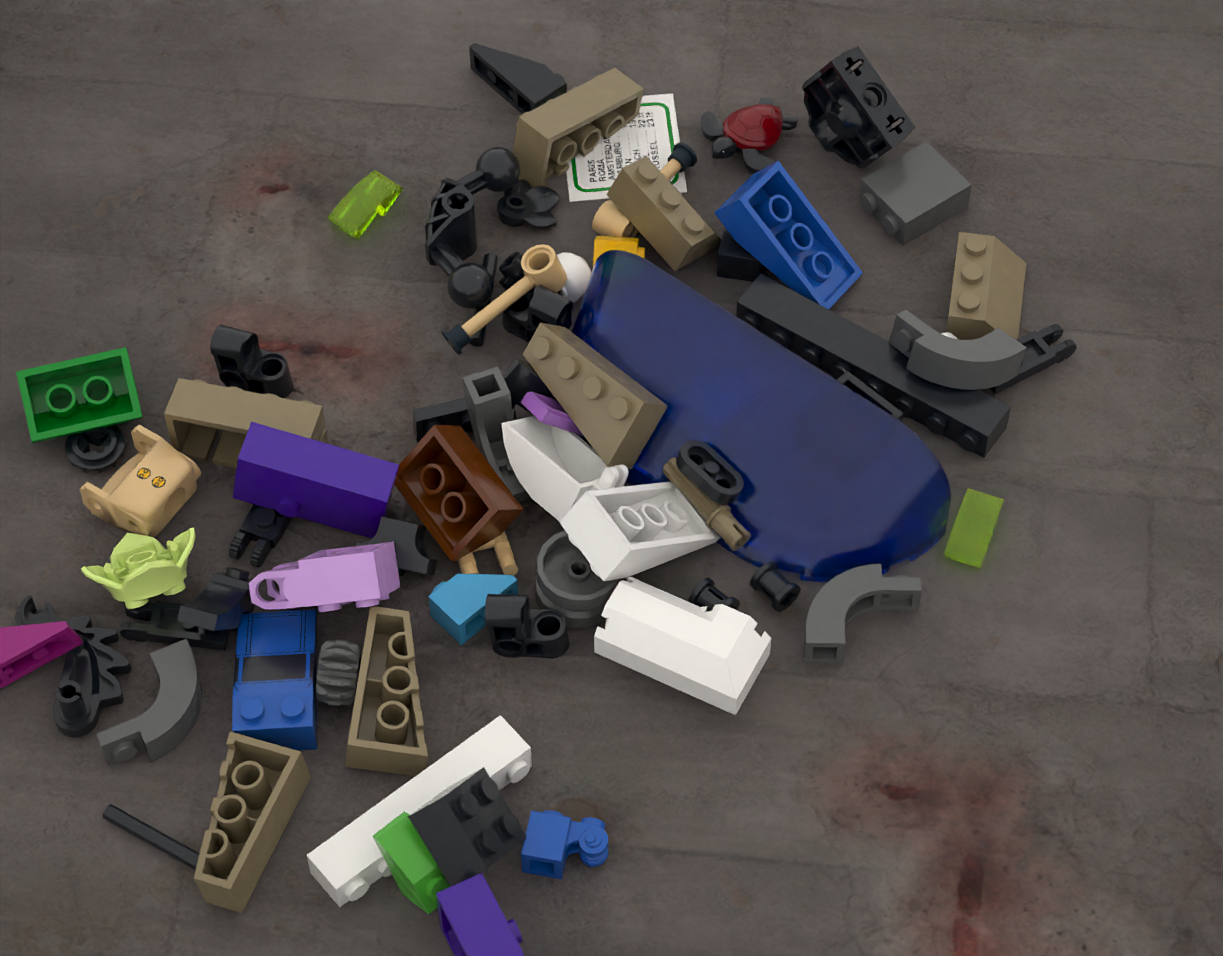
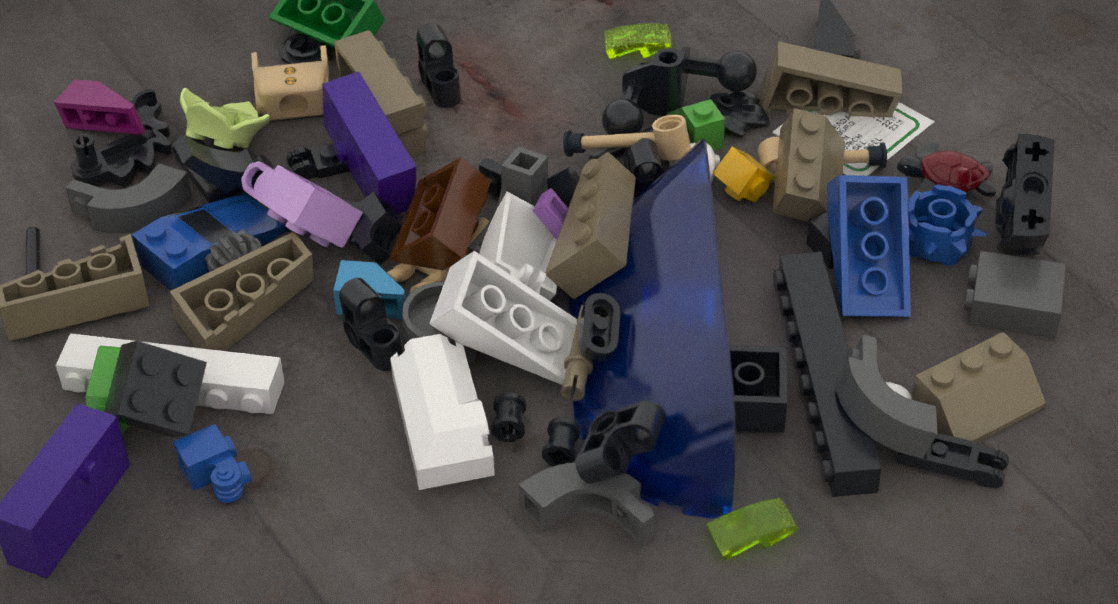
camera: 50 degrees right, 10 degrees down
(514, 234) = (705, 122): none -> bright green slope
(813, 171) = (942, 224): none -> blue brick
(852, 527) = (616, 438): none -> black piece

